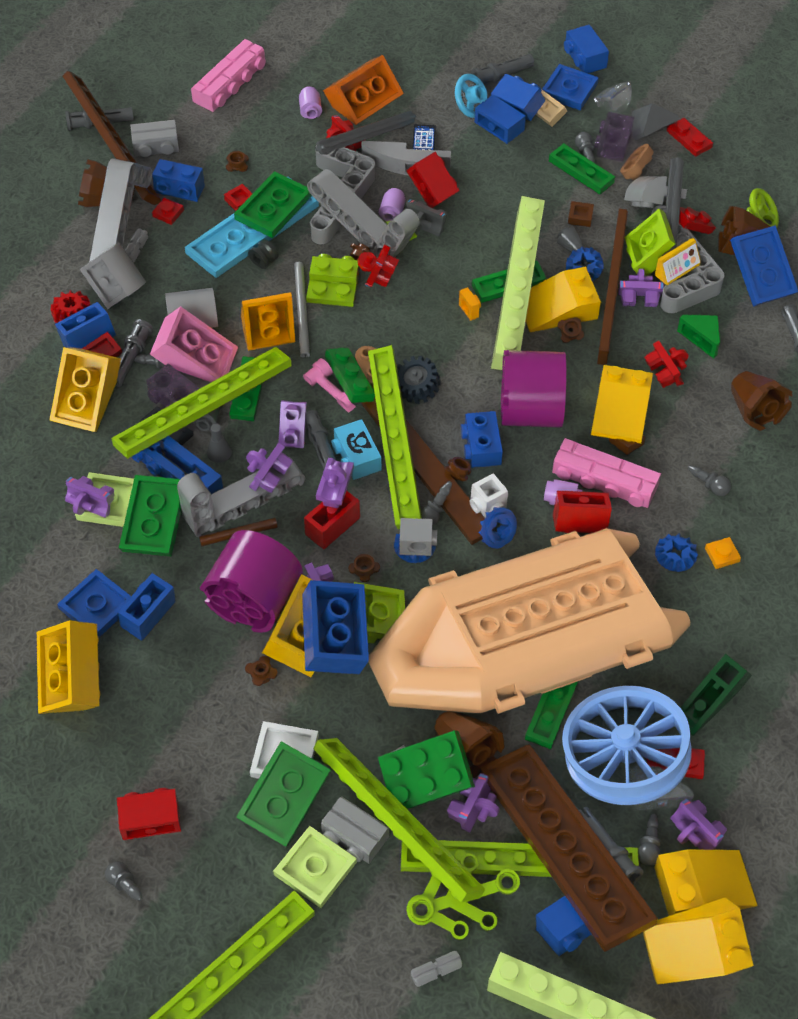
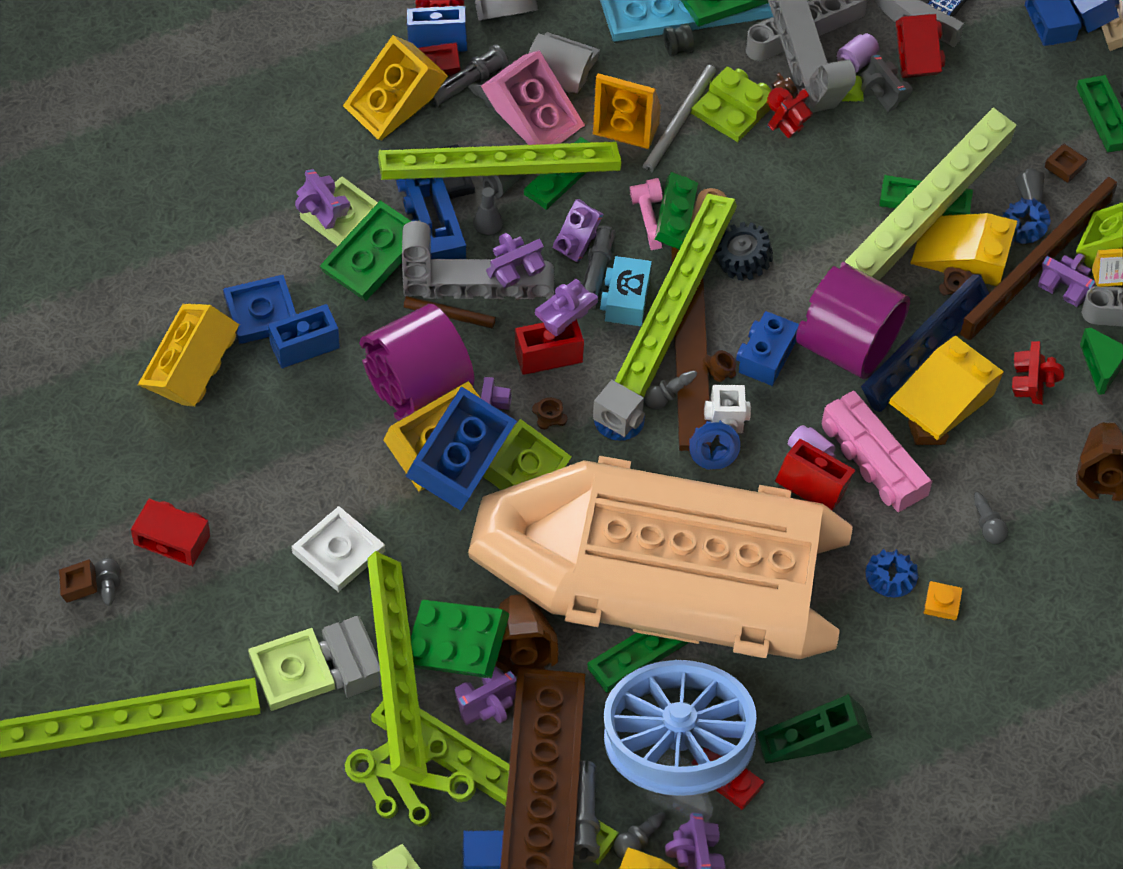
camera: 30 degrees right, 0 degrees up
(101, 895) = (78, 581): none -> reddish brown plate
(169, 386) = (480, 128): clear purple brick -> none
(261, 678) = (374, 466): reddish brown plate -> none
(284, 794) = (307, 583): green plate -> none
(430, 971) = (347, 829): light grey piece -> none
(469, 303) = (863, 199): light orange plate -> none
(583, 381) = (933, 333): none -> dark blue tile

